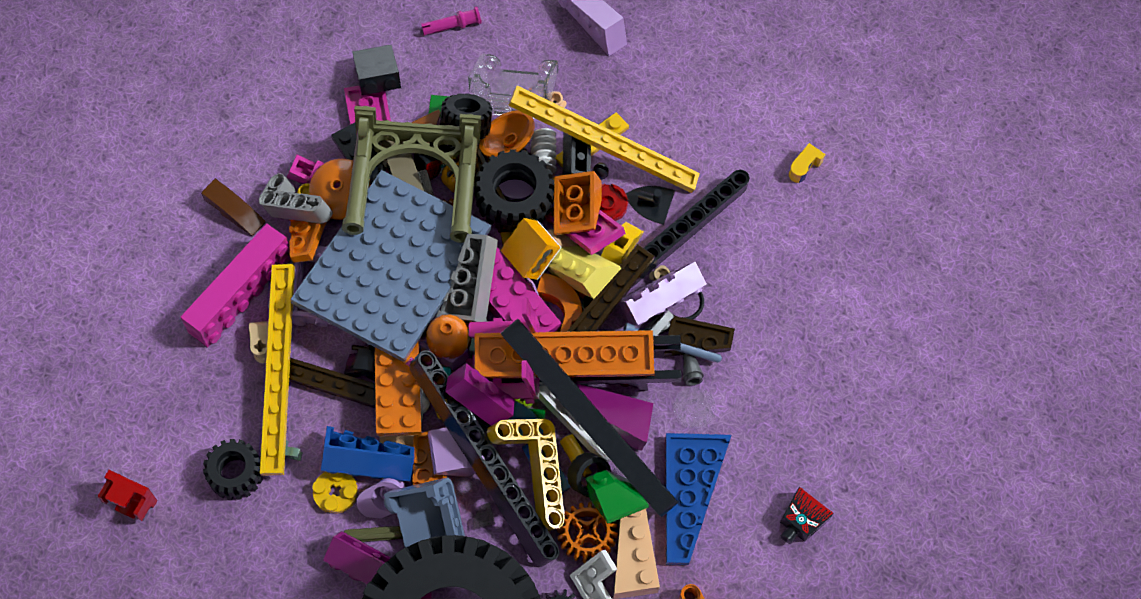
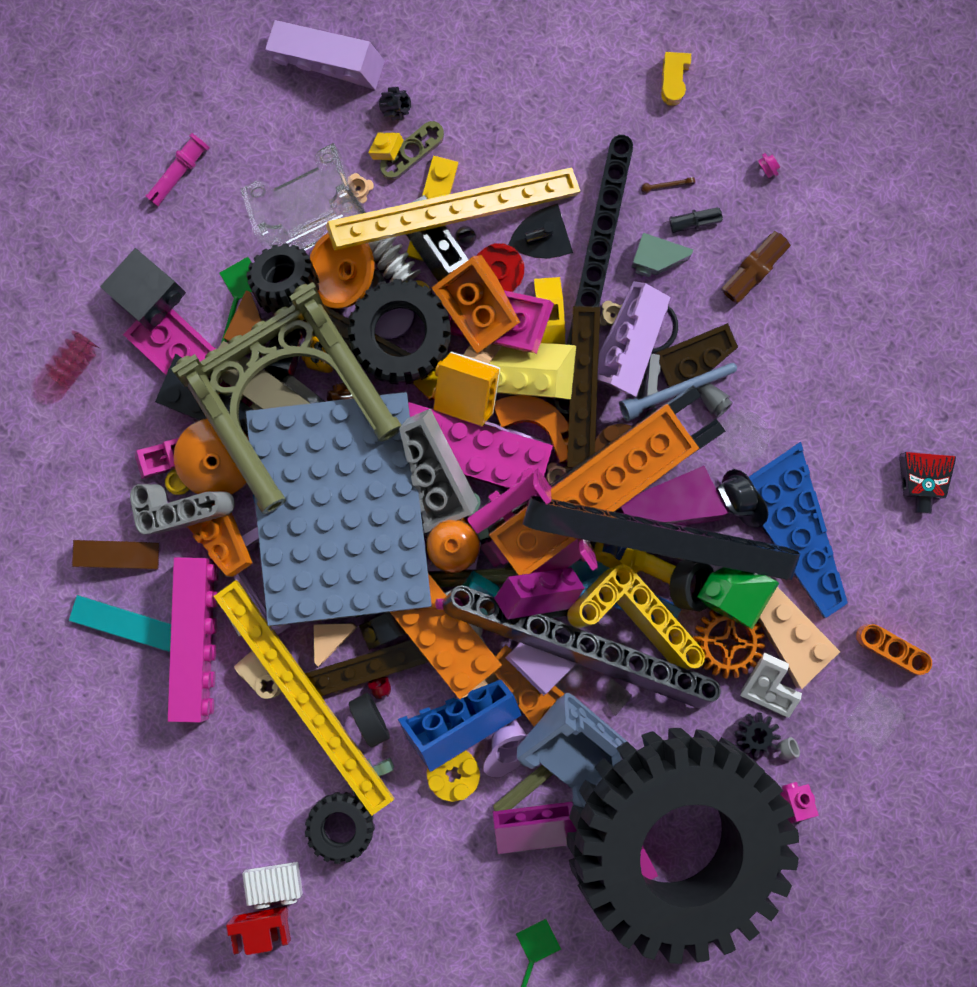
camera: 30 degrees left, 20 degrees up
(160, 476) = (272, 885): none -> white brick
(200, 248) = (121, 622): none -> teal tile
(301, 81) = (71, 359): none -> clear pink piece
(307, 413) = (369, 720): none -> black tyre
(324, 348) = (328, 638): none -> light nougat slope
(332, 401) = (381, 690): none -> dark red hinge
(552, 410) = (615, 555): none -> yellow leg
(590, 87) = (386, 146): none -> yellow plate
(614, 67) = (394, 103): none -> black gear
(620, 106) = (412, 139): none -> olive beam
(664, 443) = (742, 498): none -> black piece
(718, 259) = (658, 255): none -> sand green slope
(740, 217) = (646, 187): none -> reddish brown hinge
(758, 255) = (695, 219): none -> black axle
(778, 307) = (755, 267): none -> reddish brown piece
(831, 253) = (769, 165): none -> dark pink plate

